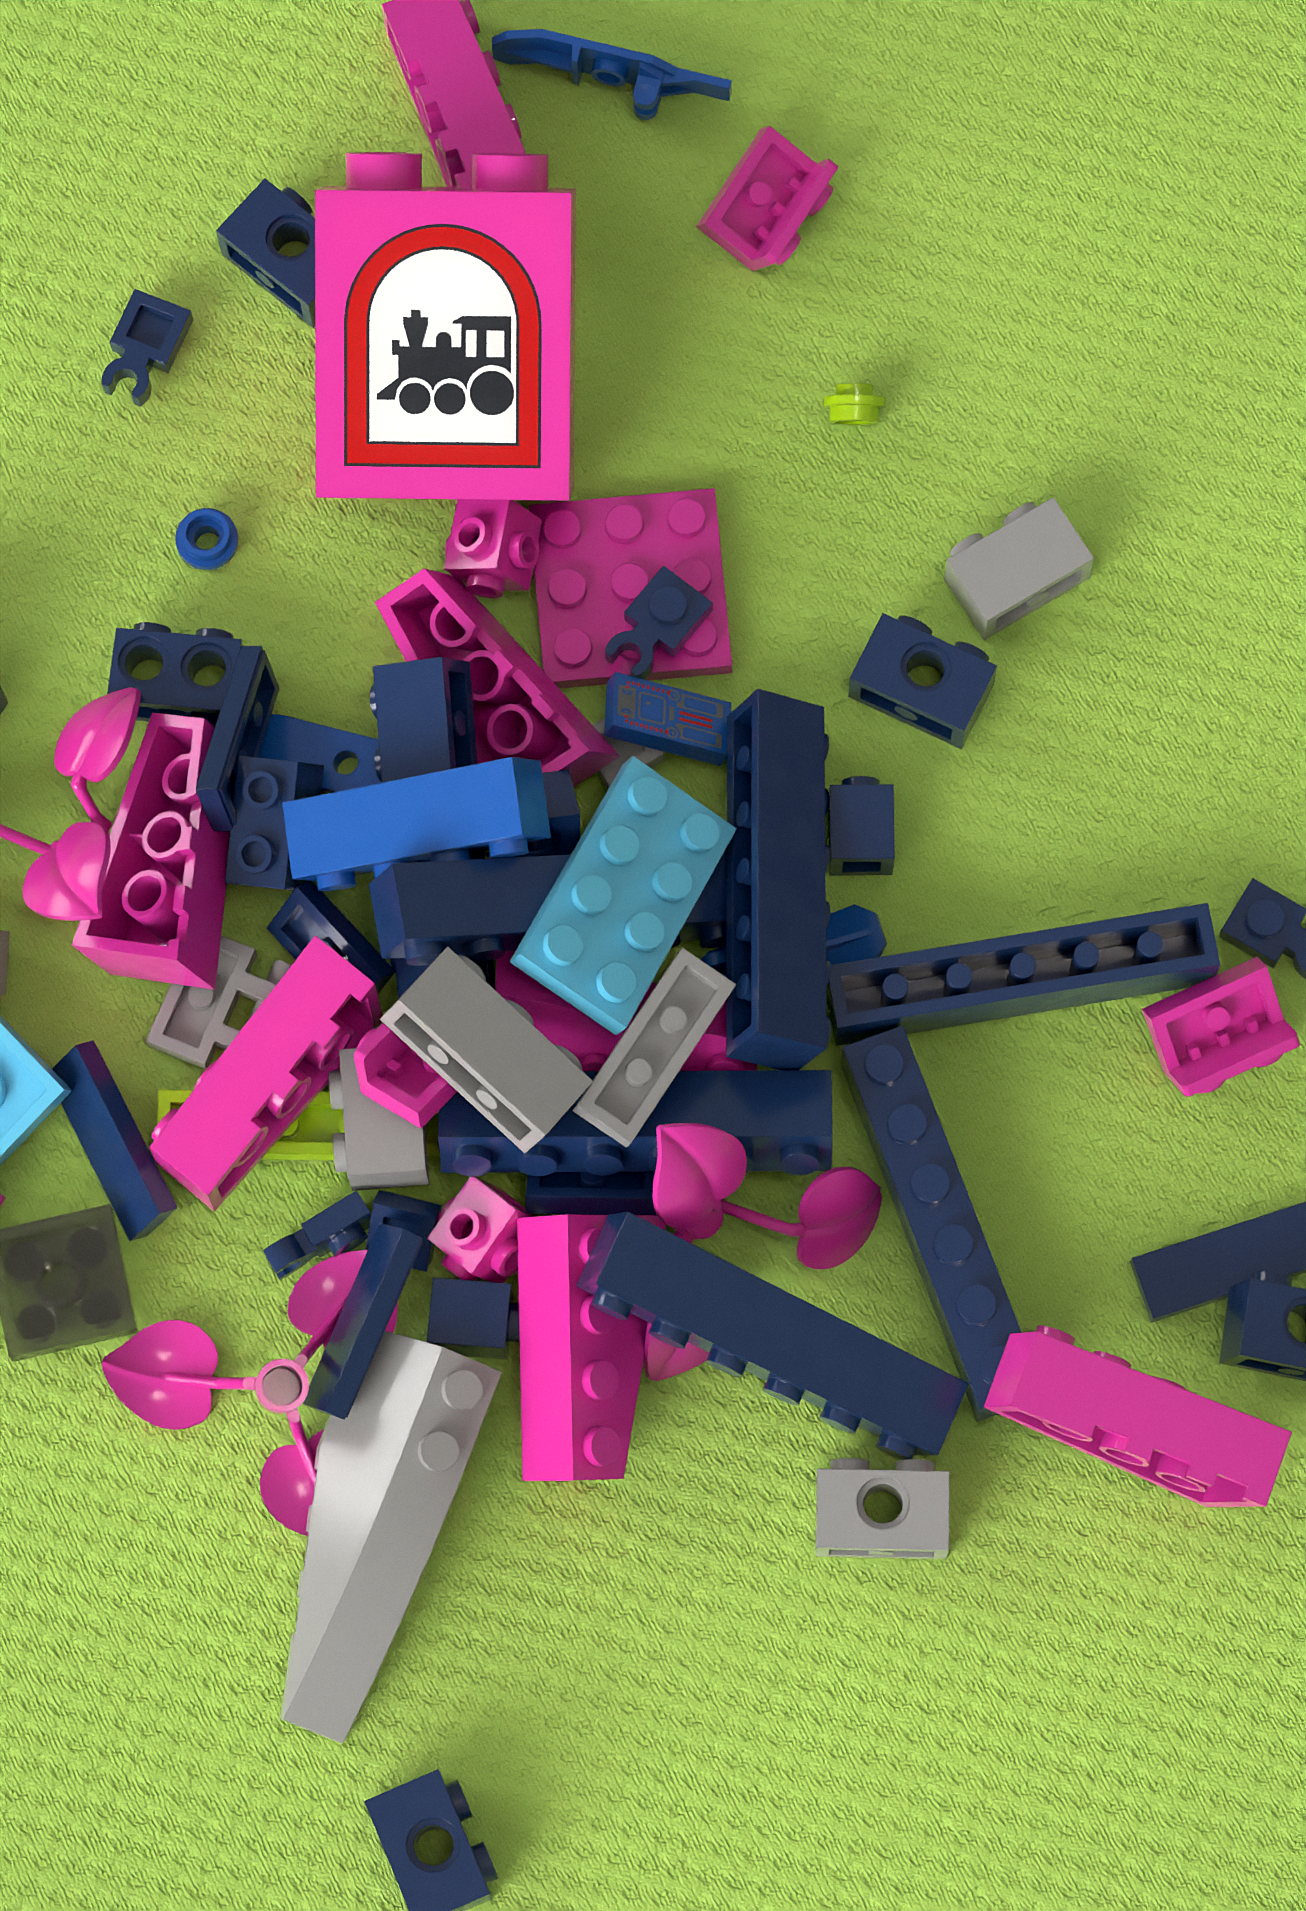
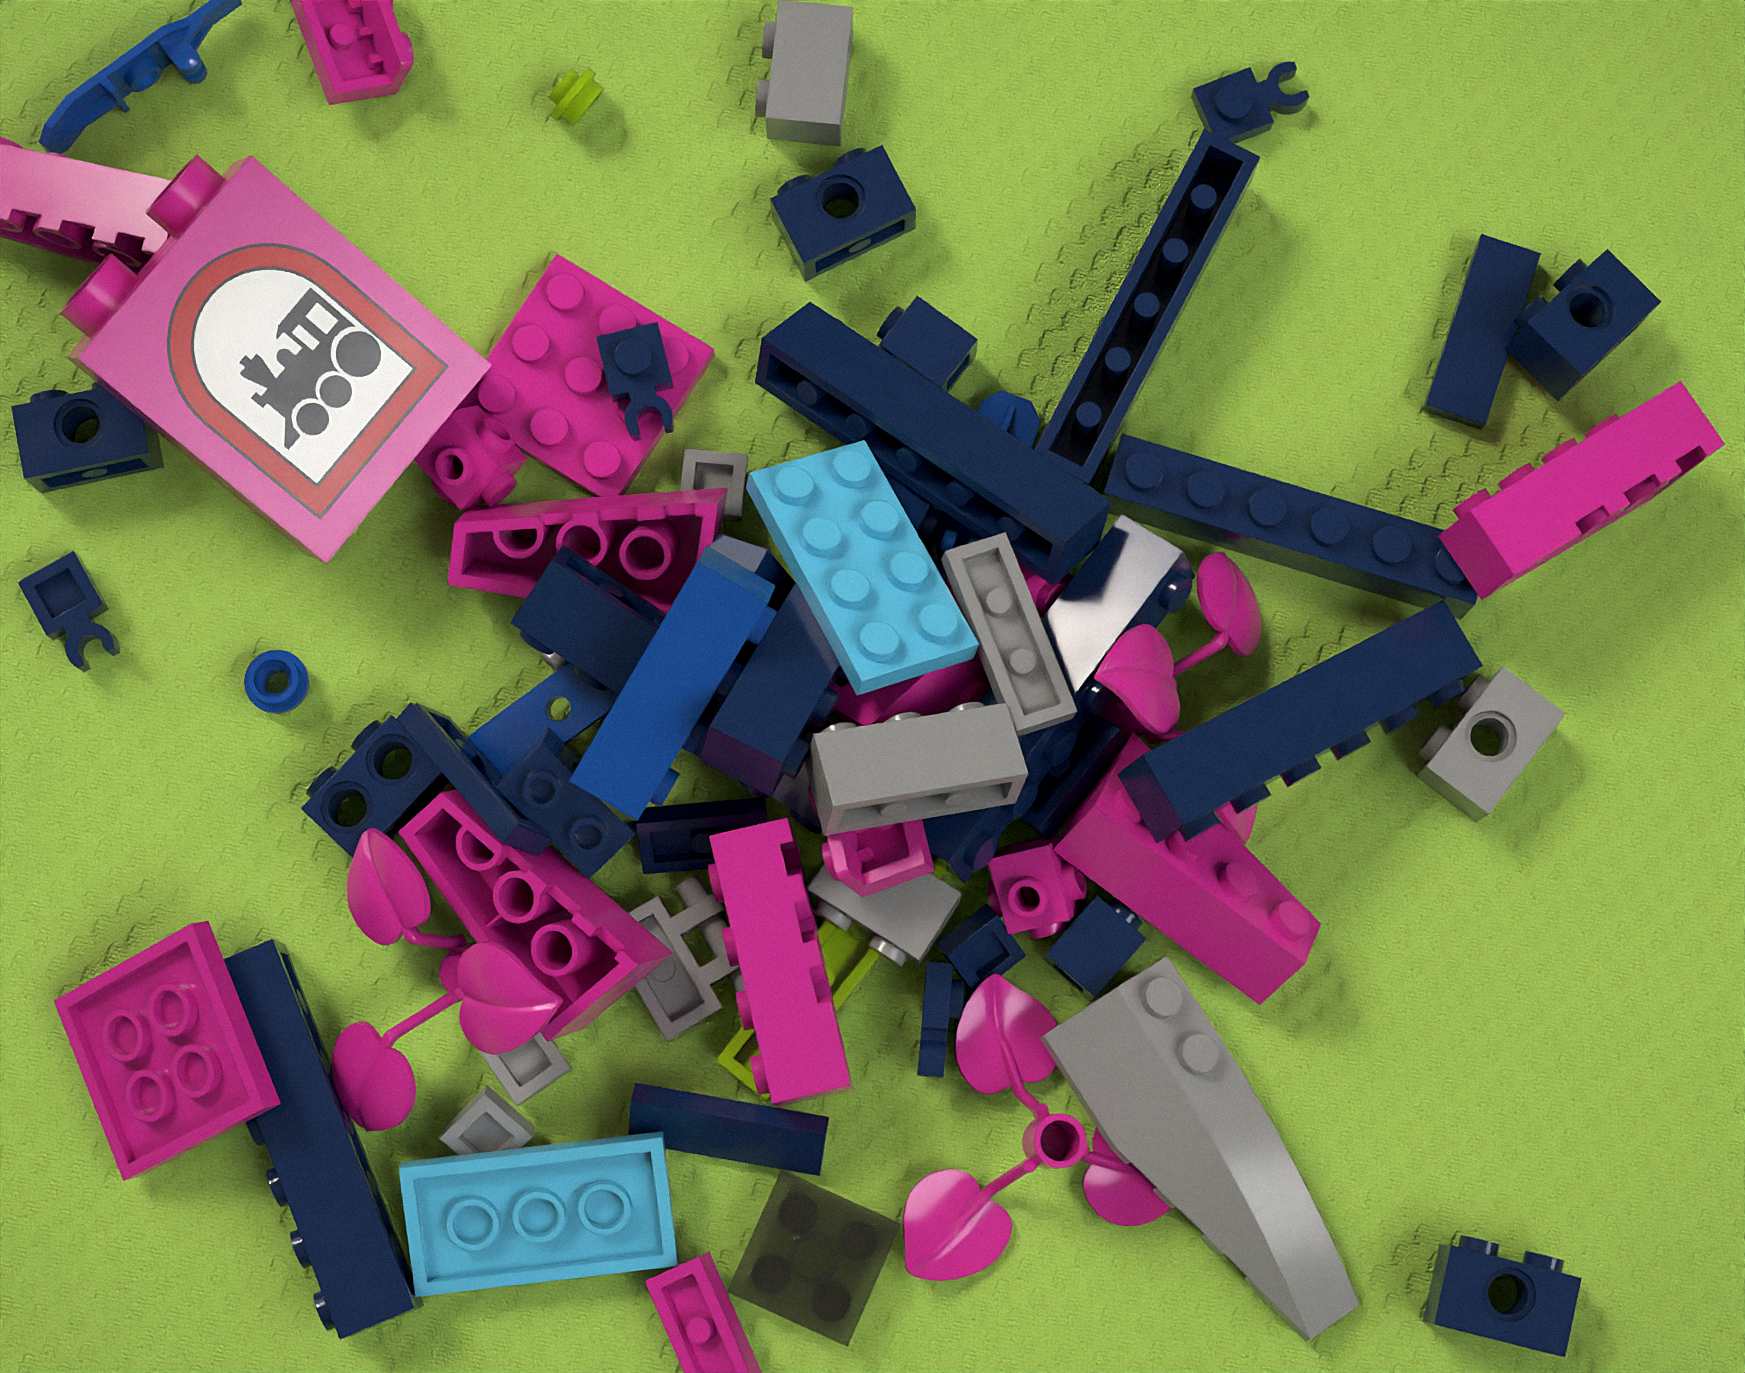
camera: 55 degrees left, 5 degrees up
(47, 951) = (528, 1068): none -> light grey plate
(363, 1321) = (1041, 1034): dark blue tile -> none
(666, 718) = (721, 430): blue tile -> none
(1220, 1028) = (1299, 201): dark pink bracket -> none

